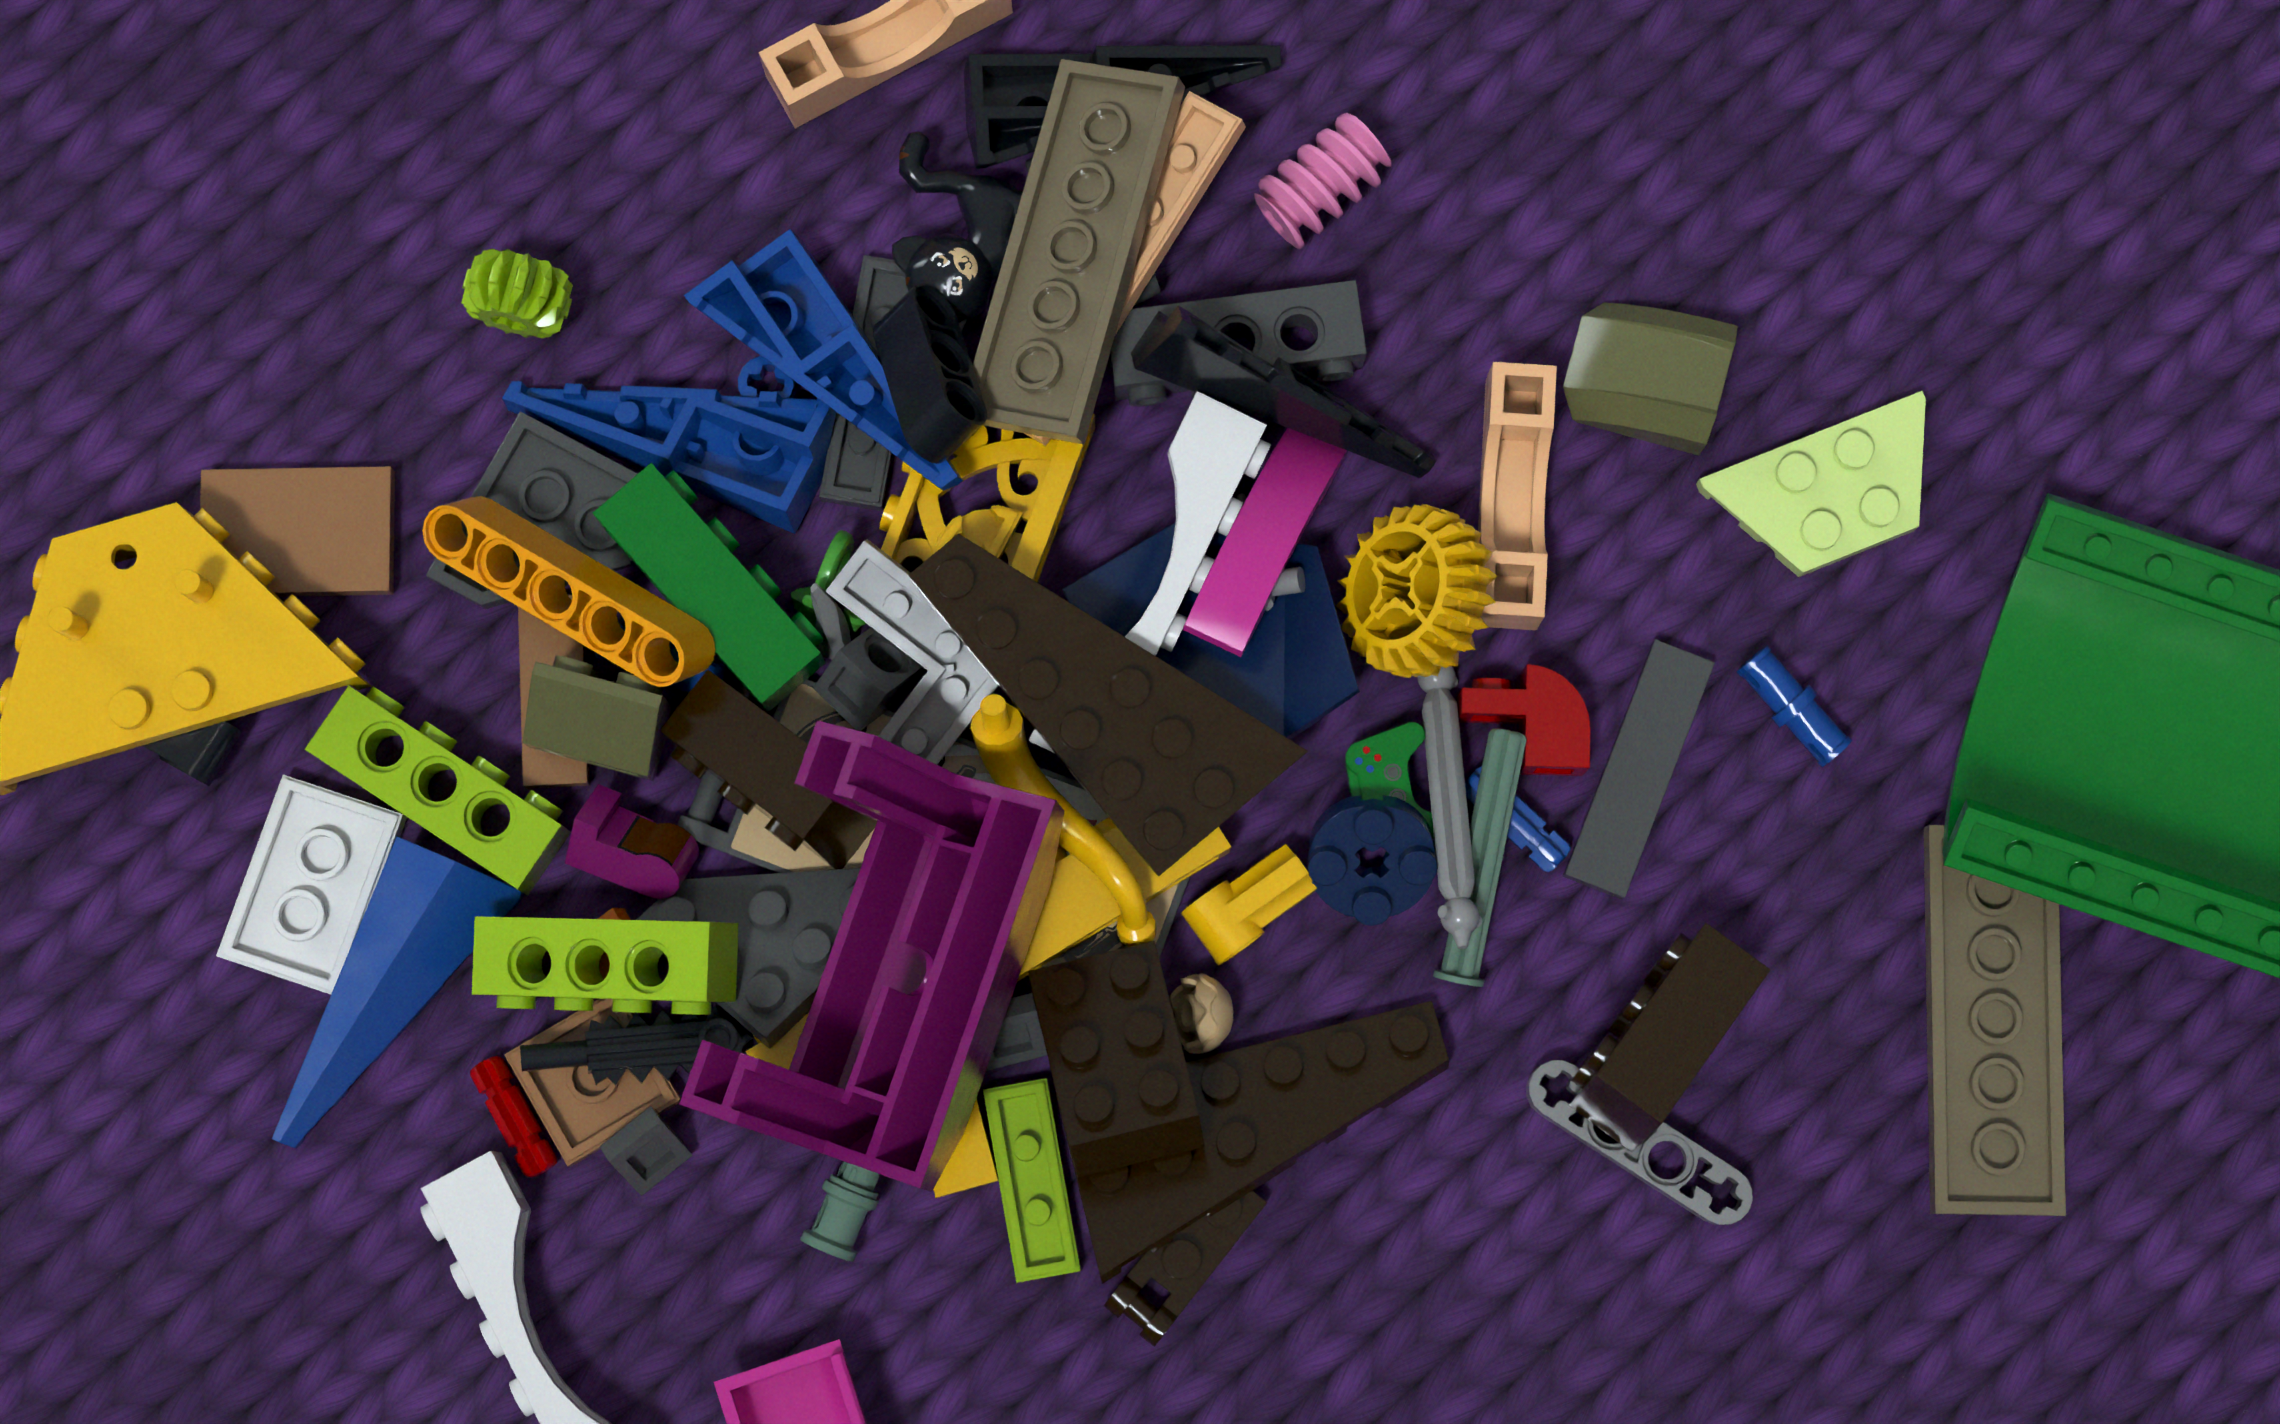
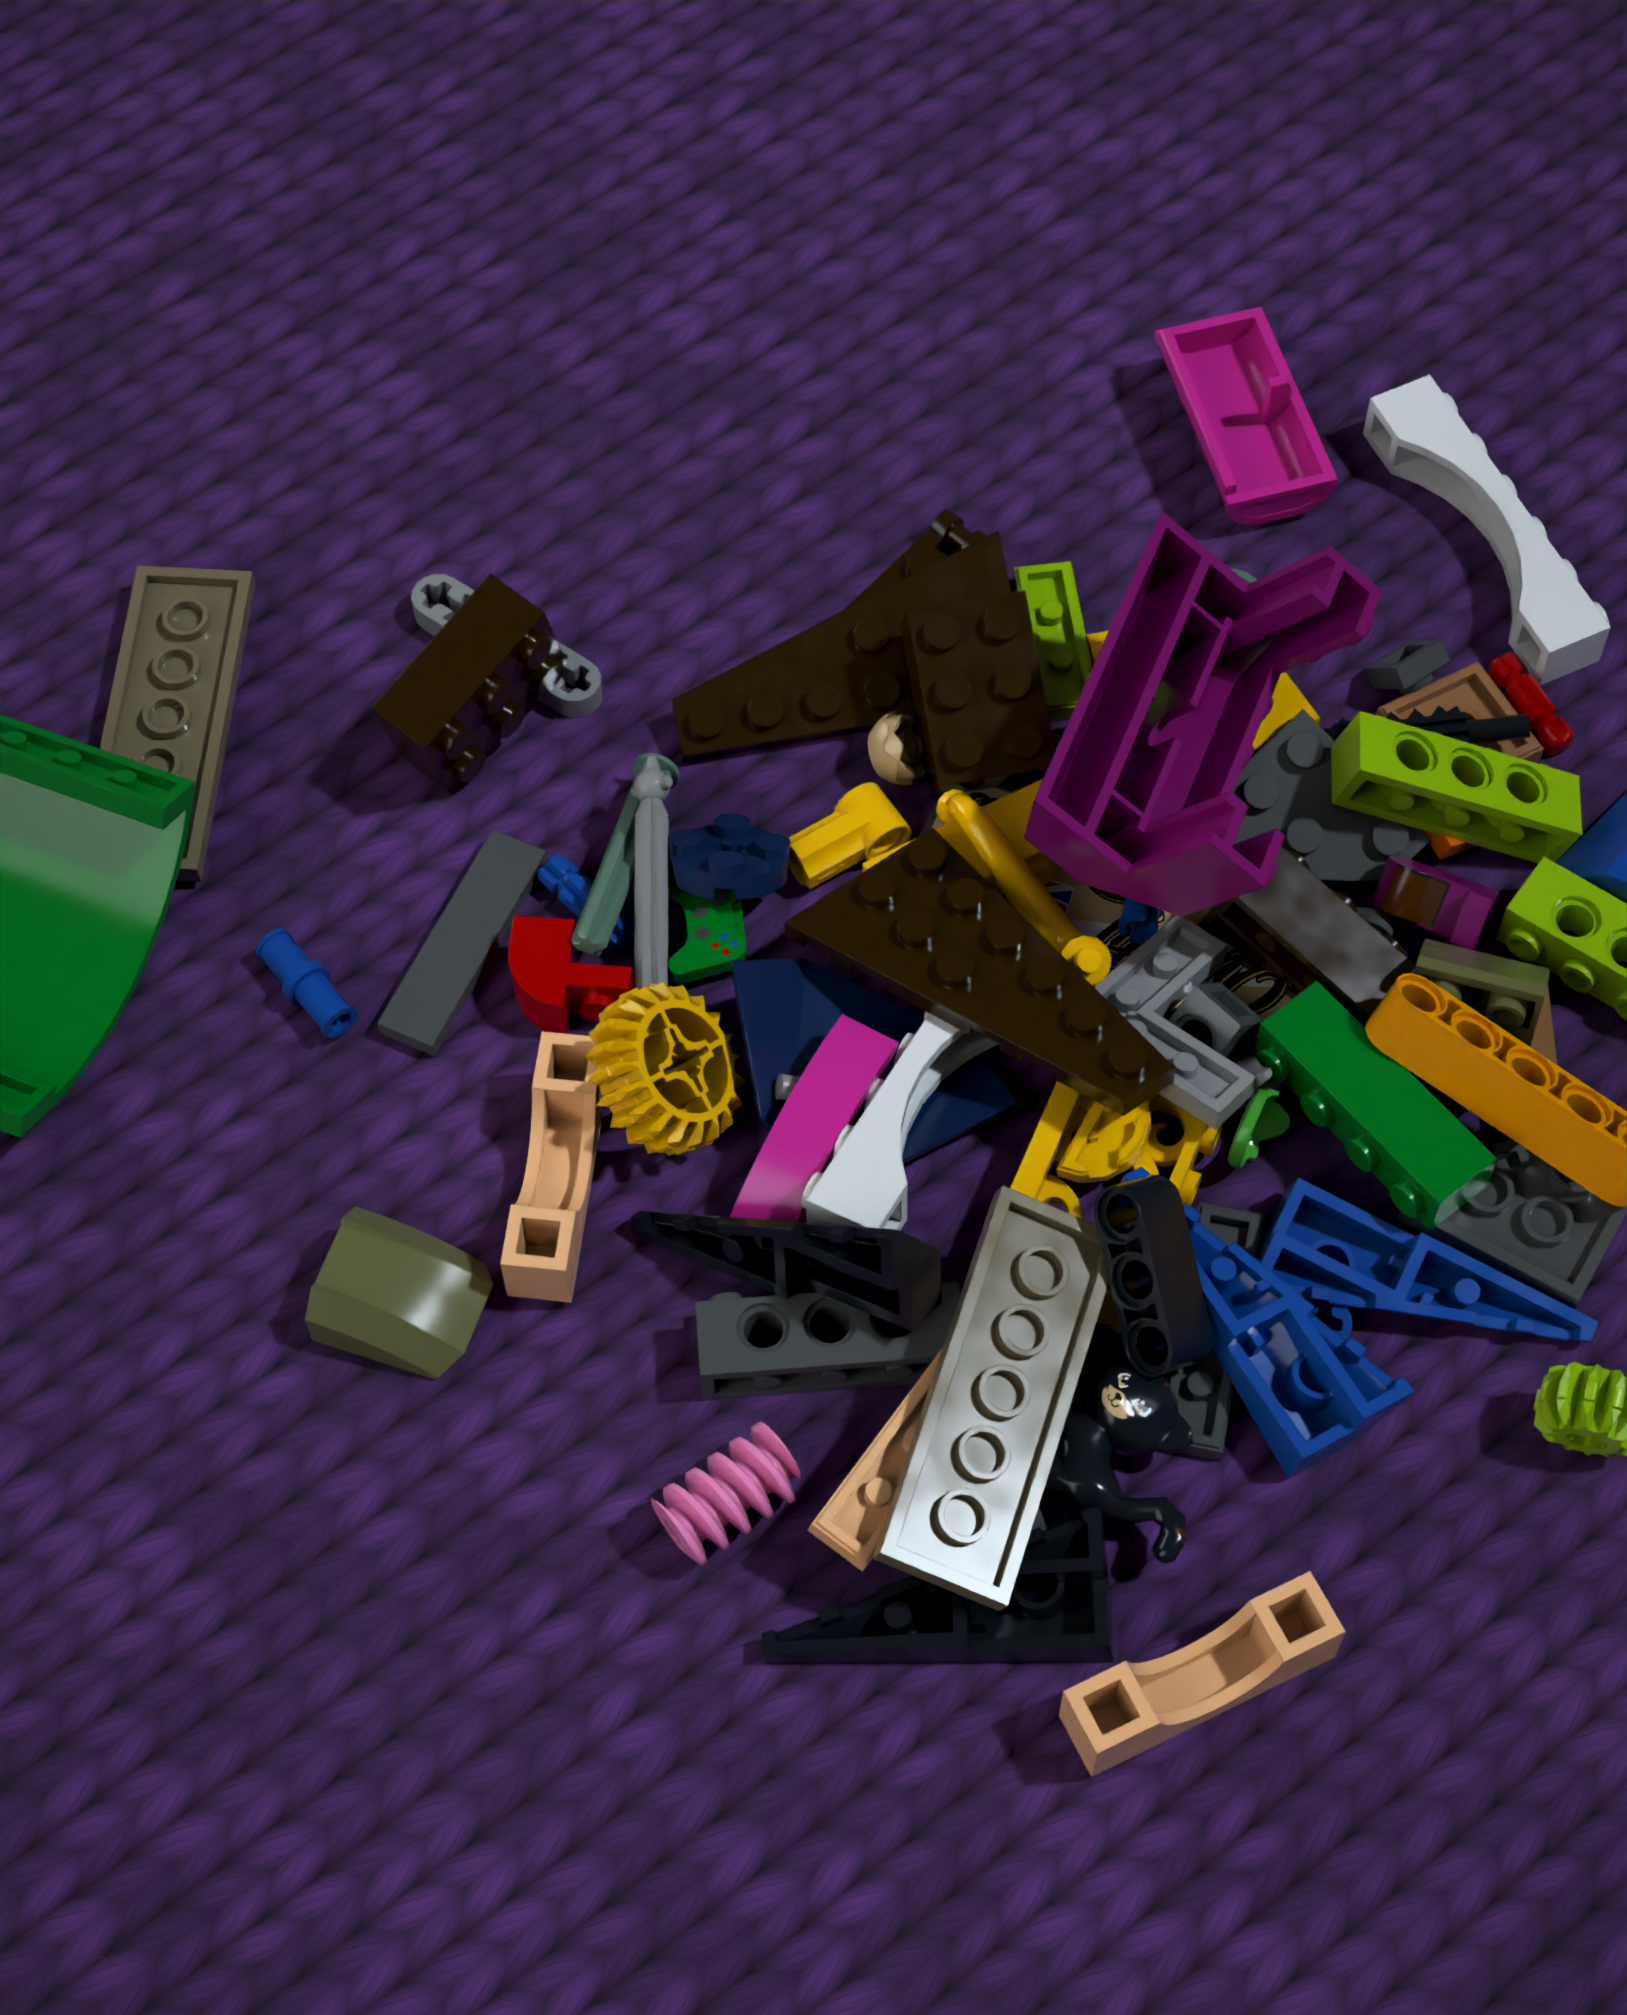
camera: 175 degrees left, 20 degrees down
(1832, 488) = (232, 1184): yellowish green wing -> none

